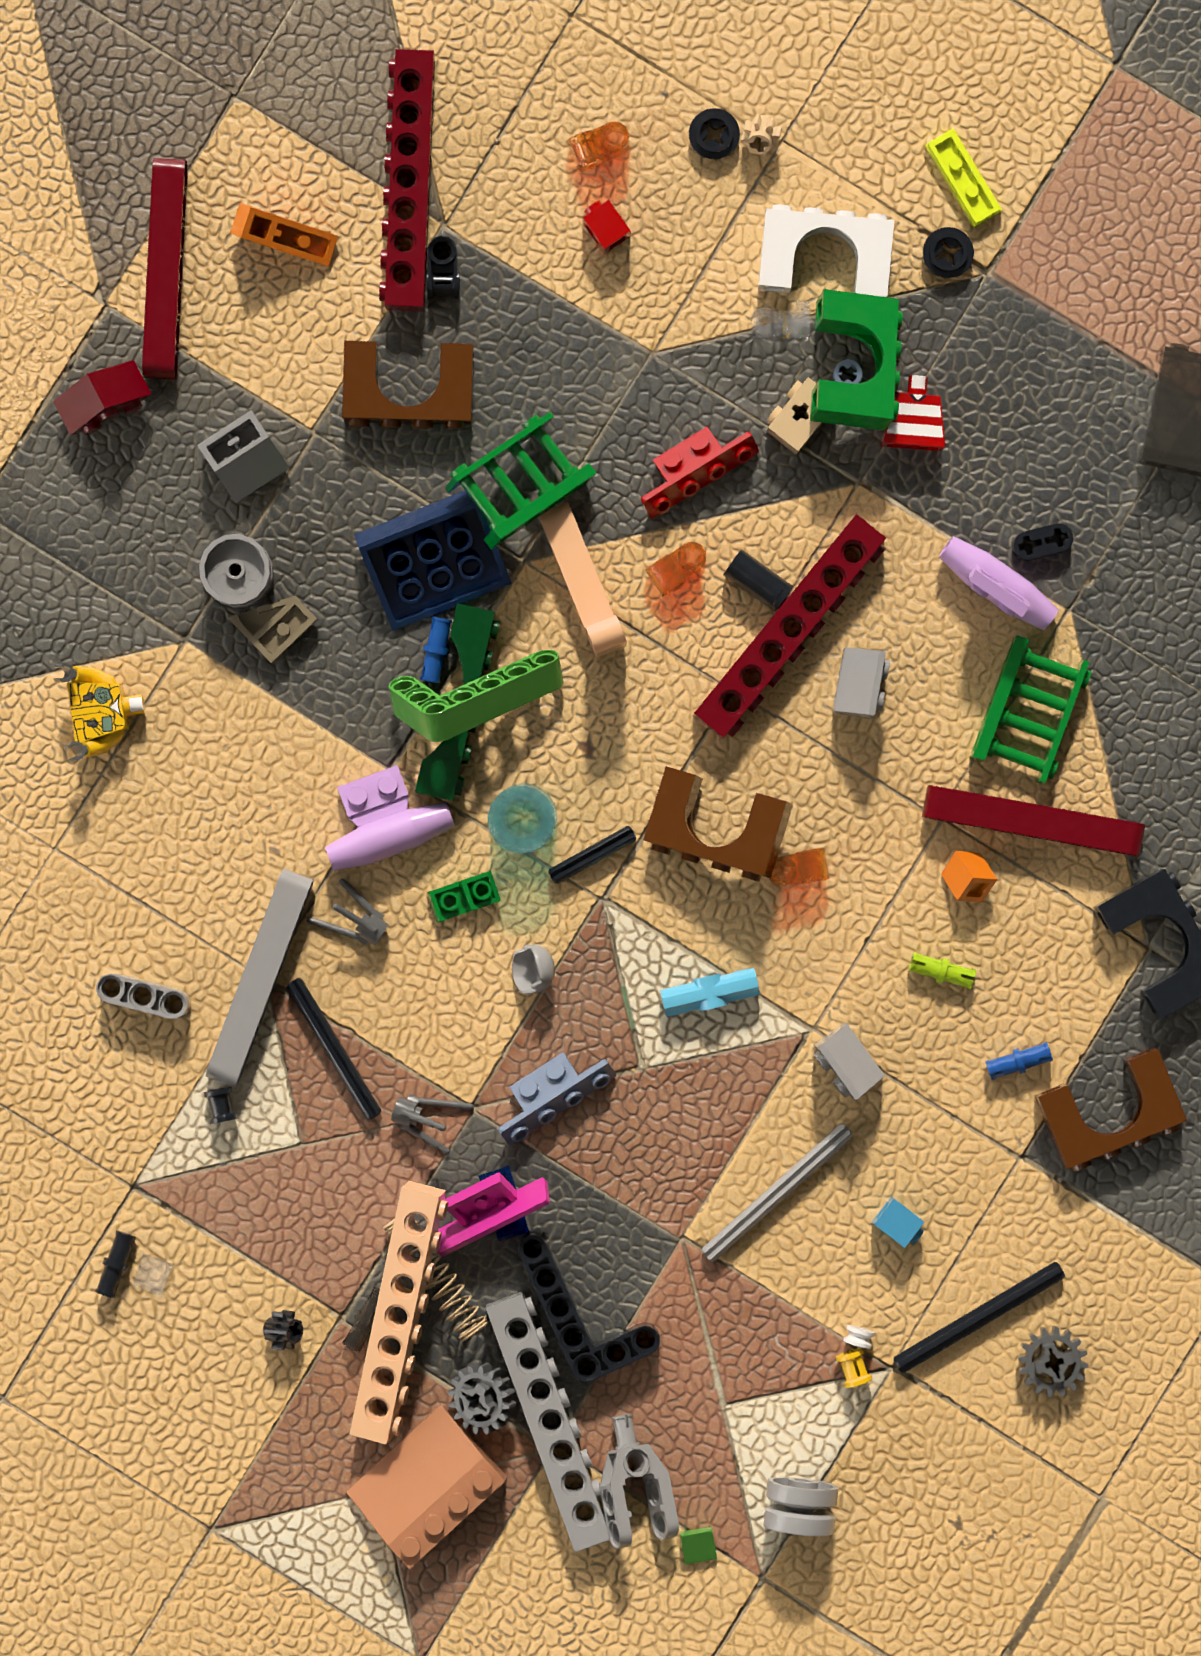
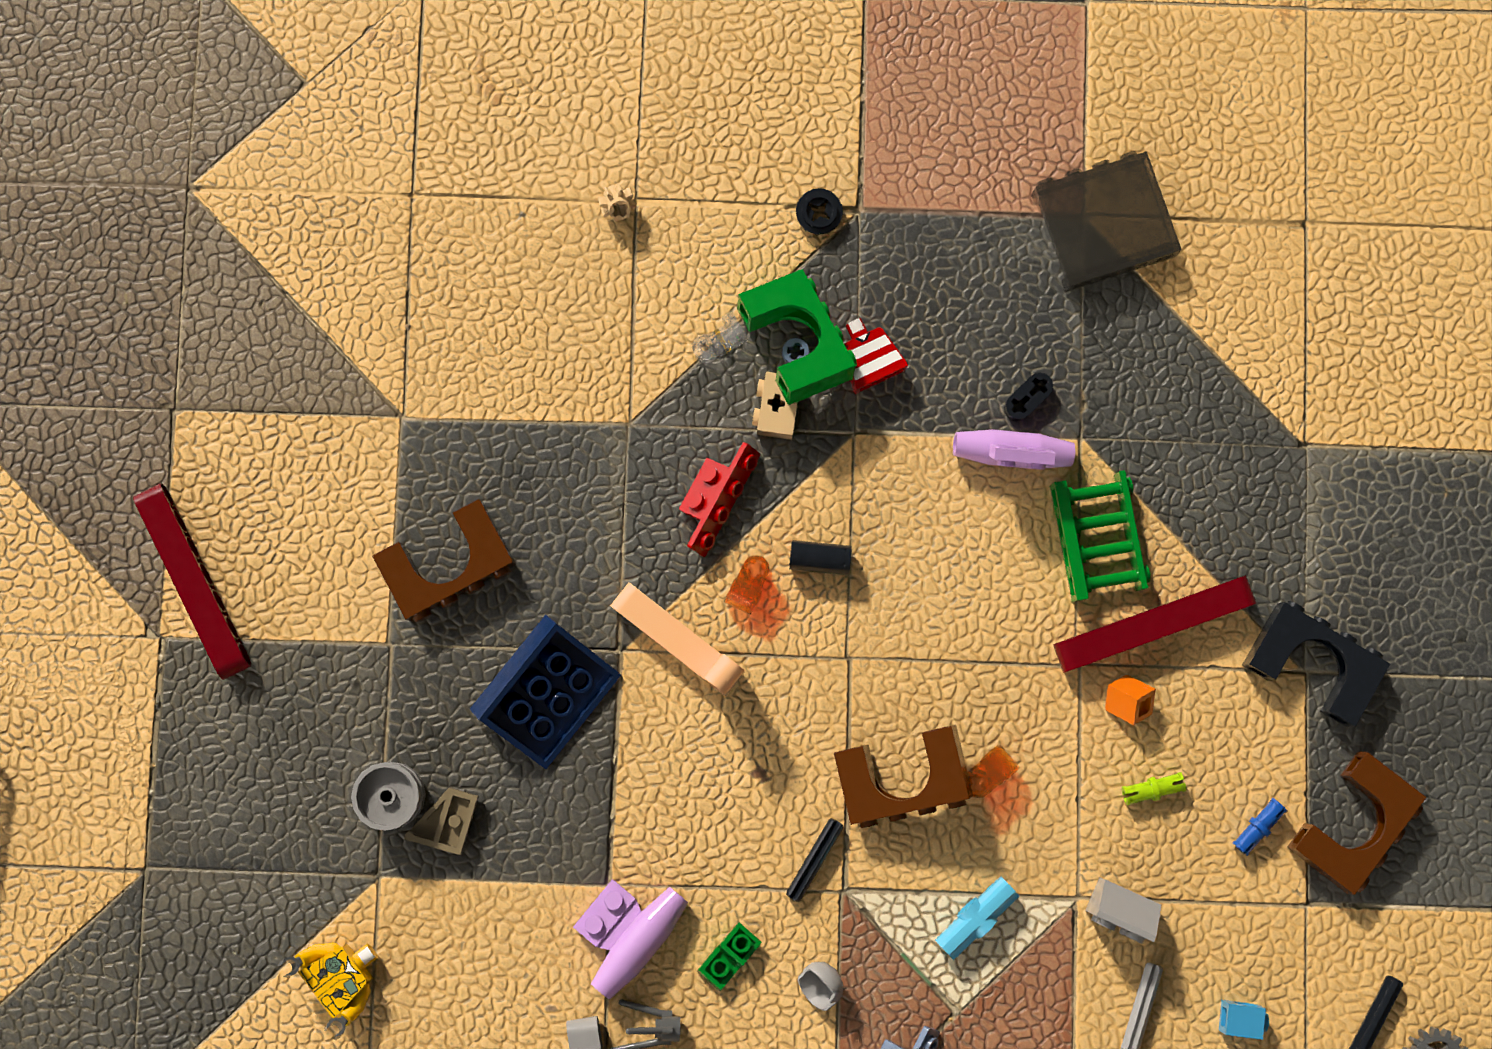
camera: 35 degrees left, 5 degrees down
(101, 397) = (196, 716): dark red brick -> none
(243, 456) = (341, 697): light grey slope -> none
(283, 234) = (275, 498): orange slope -> none
(405, 66) = (310, 302): dark red brick -> none
(435, 649) = (590, 765): blue pin -> none
(441, 769) = (651, 862): dark green arch -> none
(443, 271) = (424, 456): black piece -> none
(478, 701) = (648, 791): bright green beam -> none
(513, 834) = (741, 882): clear light blue wheel -> none
(524, 509) = (598, 609): green fence -> none
(597, 146) = (491, 285): clear orange piece -> none
(605, 225) = (533, 343): red brick -> none
(717, 120) = (573, 211): black gear -> none
(786, 229) = (748, 235): white arch -> none
(857, 534) = (876, 474): dark red brick -> none
(860, 682) = (952, 592): light grey slope -> none
(963, 178) = (796, 147): neon yellow tile -> none

